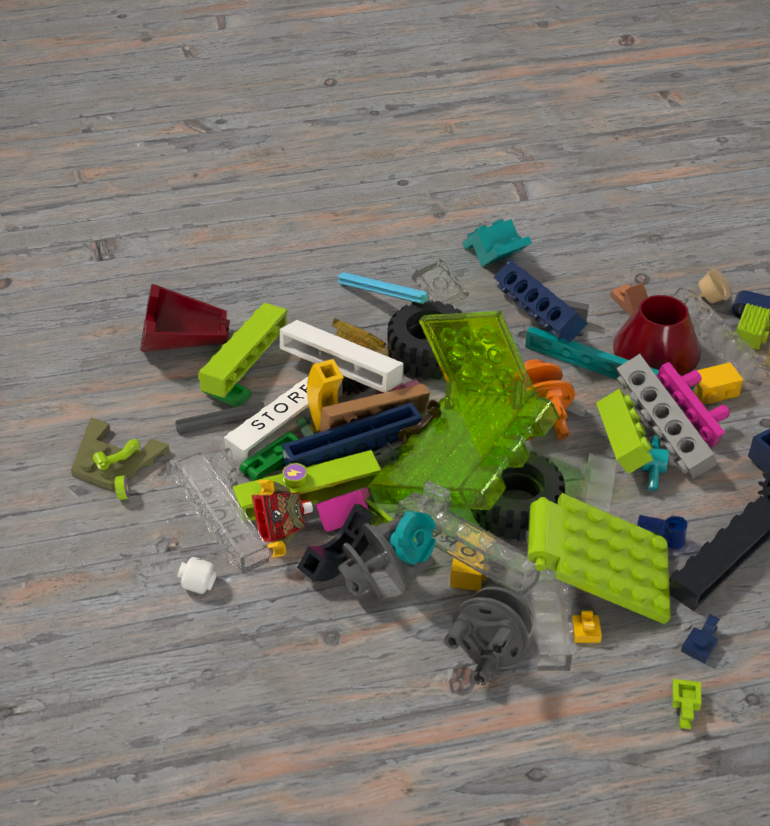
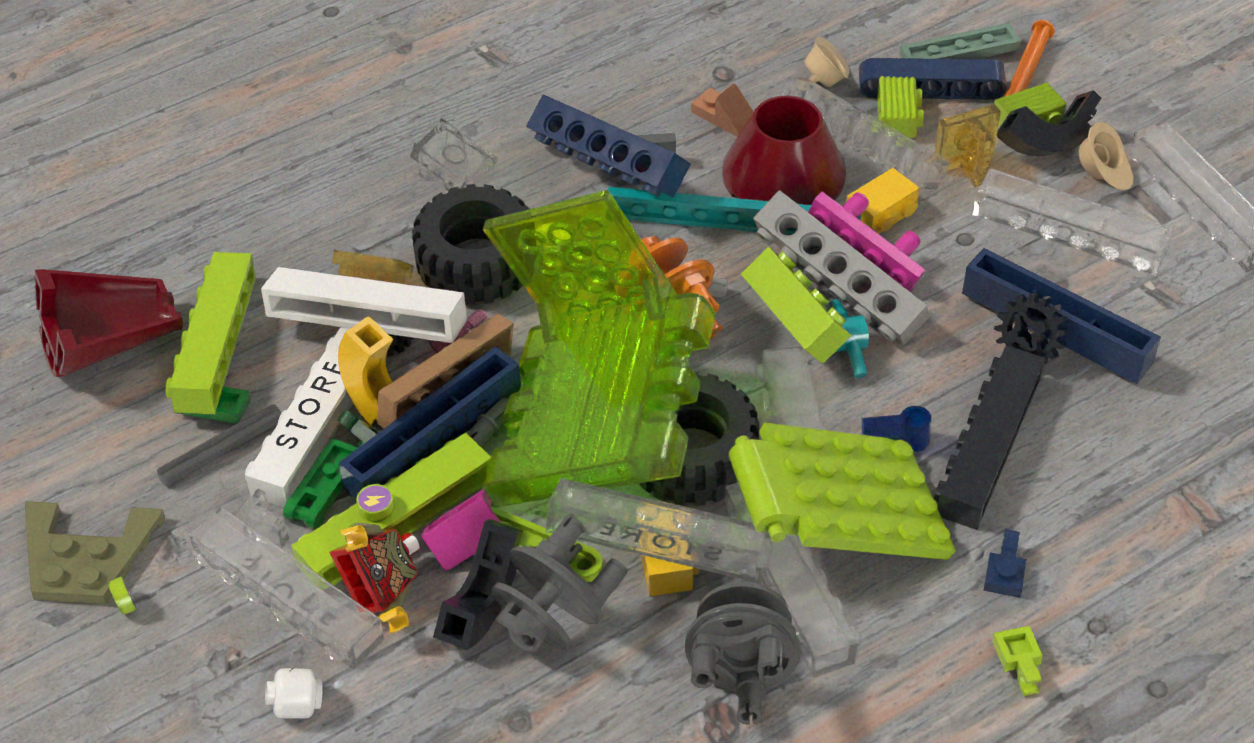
camera: 20 degrees left, 5 degrees up
(104, 462) = (109, 531): lime piece -> none
(383, 288) = (380, 184): medium azure axle -> none
(412, 526) = (593, 548): teal plate -> none
(433, 412) = (534, 352): dark brown piece -> none
(437, 496) = (598, 477): clear tile -> none
(496, 241) = (507, 71): teal bracket -> none
(586, 628) = (855, 597): yellow tile -> none

